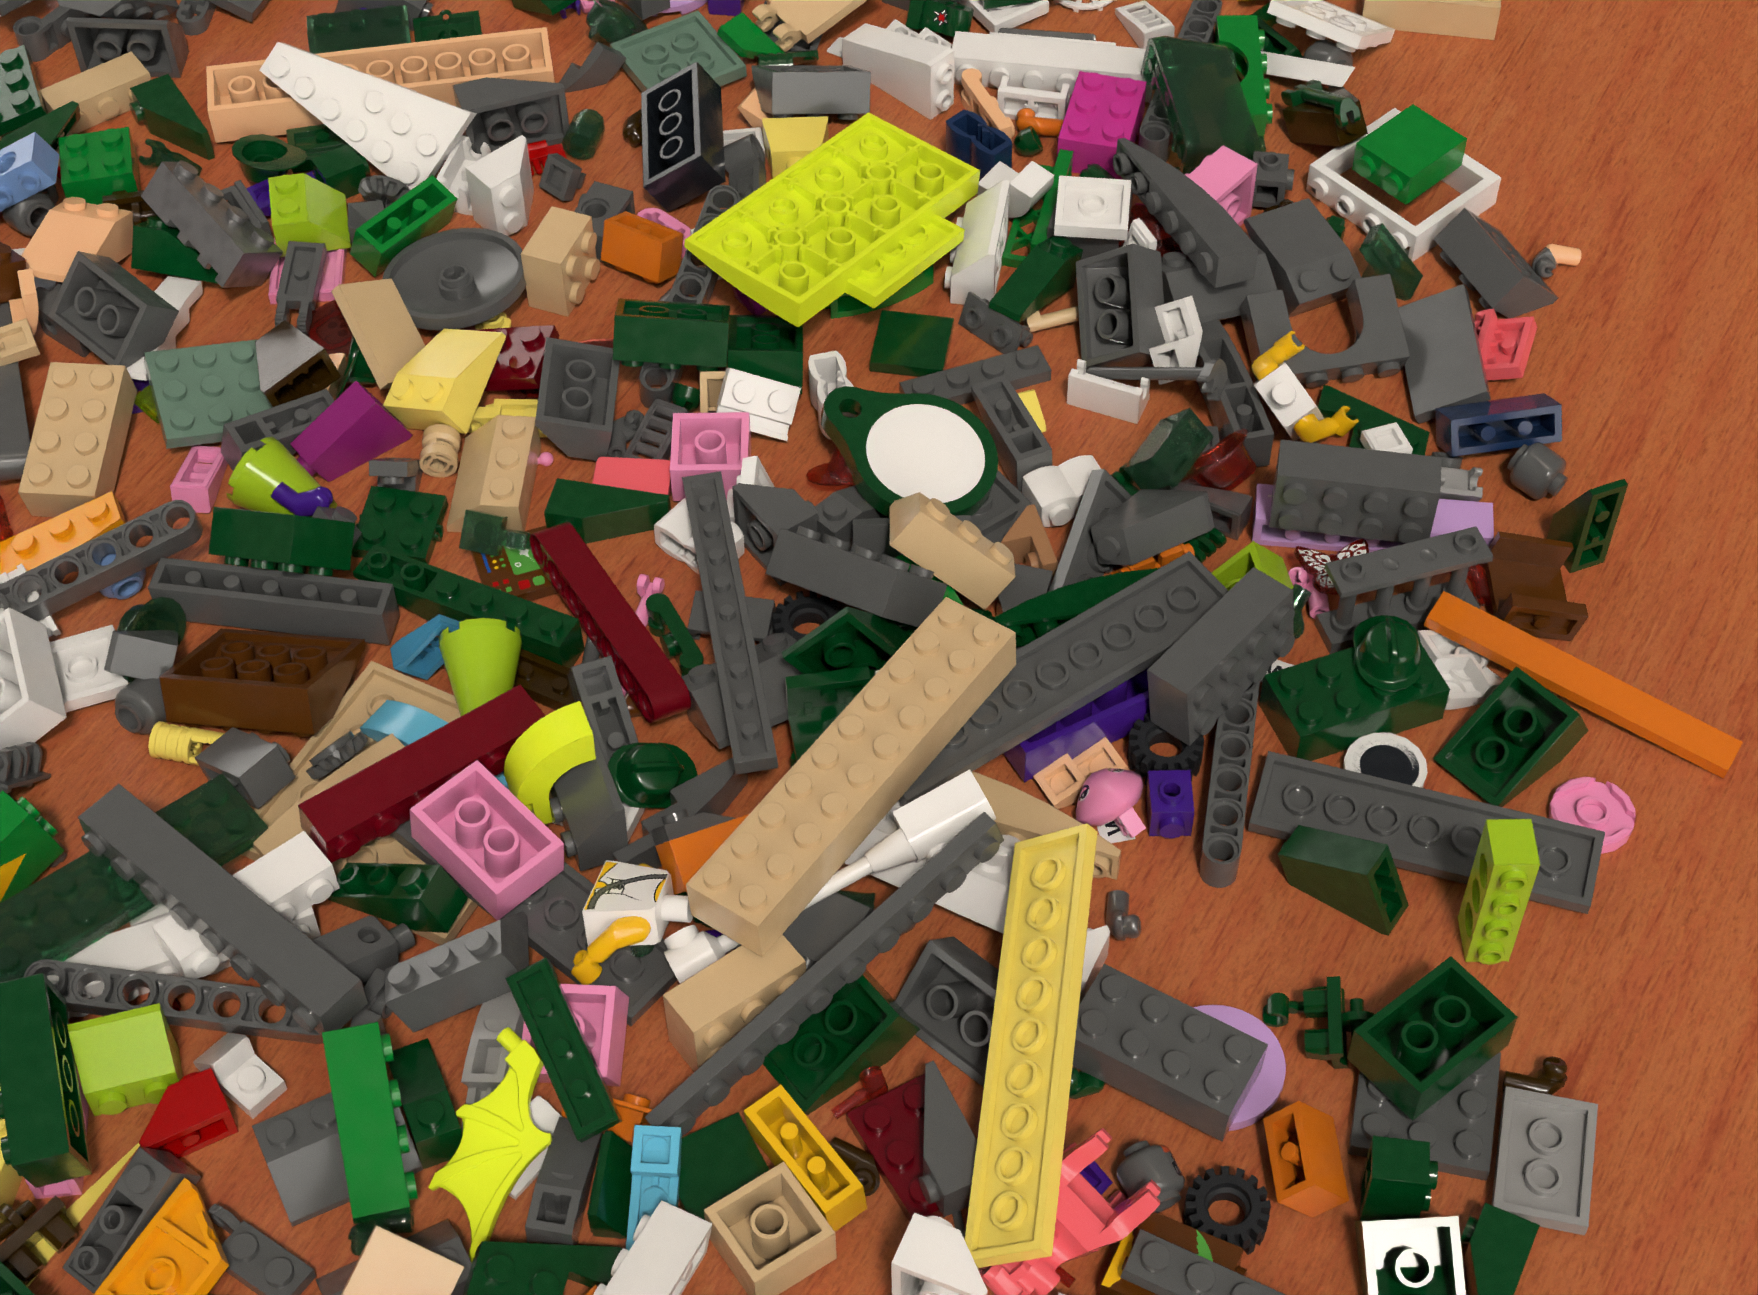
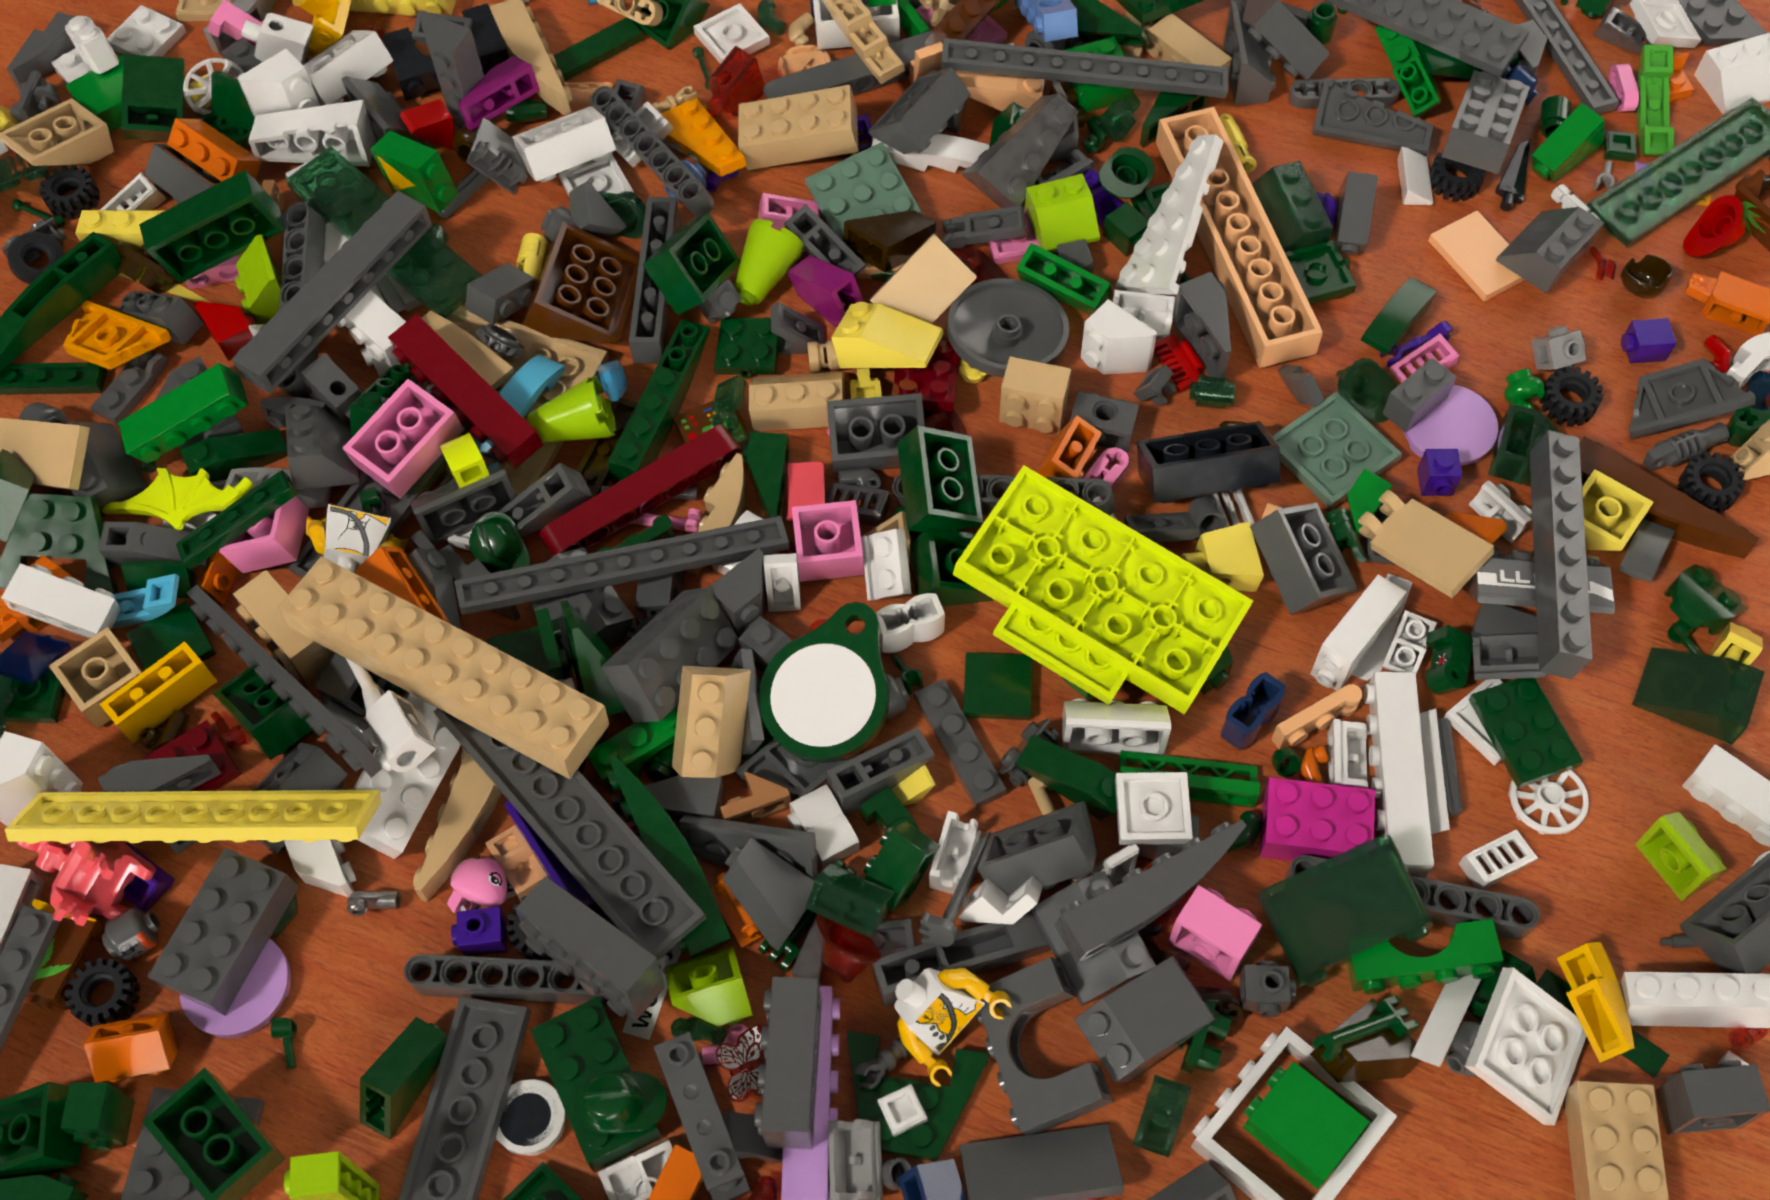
camera: 85 degrees right, 10 degrees up
(109, 159) = (1085, 68): none -> dark grey plate
(302, 503) = (737, 267): dark purple arm -> none
(382, 188) = (1102, 260): dark grey gear -> none
(556, 904) = (369, 498): none -> dark green hand
(635, 551) = (724, 500): none -> tan slope
(1025, 187) = (1196, 745): white brick -> none
(1071, 432) = (885, 810): none -> dark green leg
(1122, 415) = (901, 861): none -> dark green brick
(1330, 1003) = (255, 1074): dark green hips -> none

